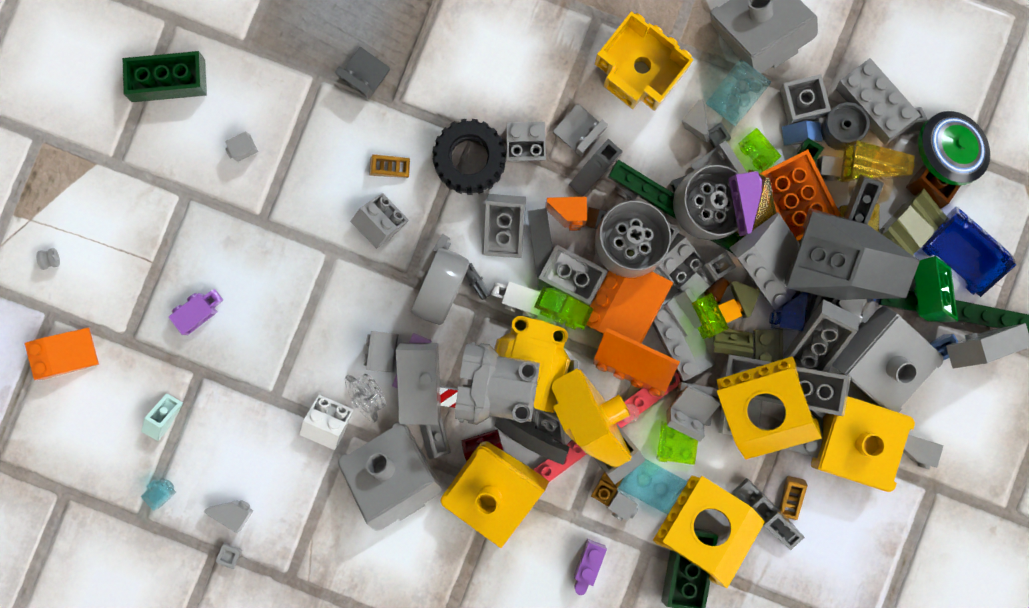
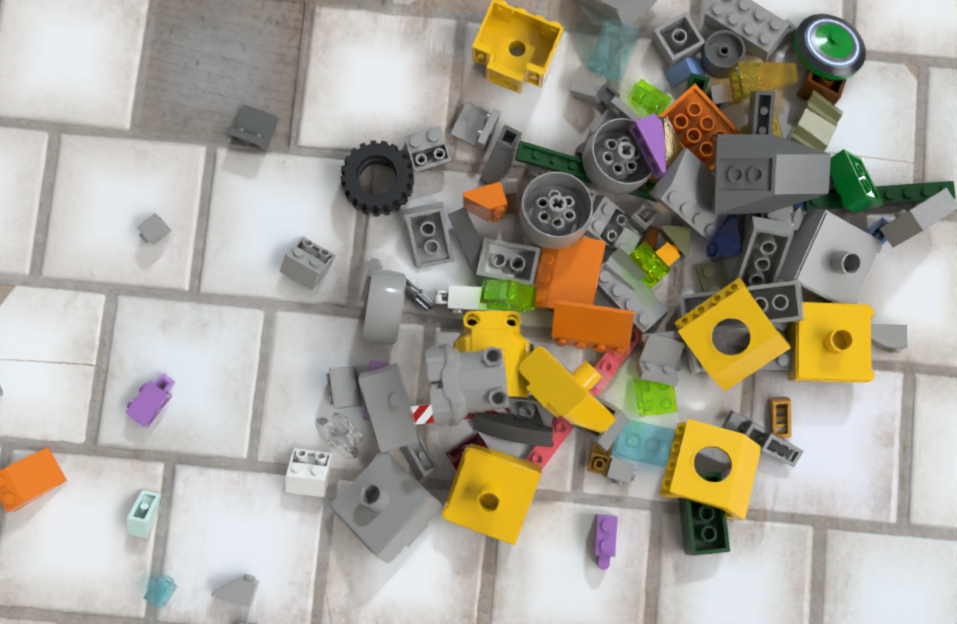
camera: 25 degrees left, 5 degrees down
(164, 76) = (61, 183): dark green brick -> none
(389, 173) = (302, 202): pearl gold slope -> none
(734, 343) = (680, 284): olive plate -> none
(970, 252) = (874, 138): clear blue windscreen -> none

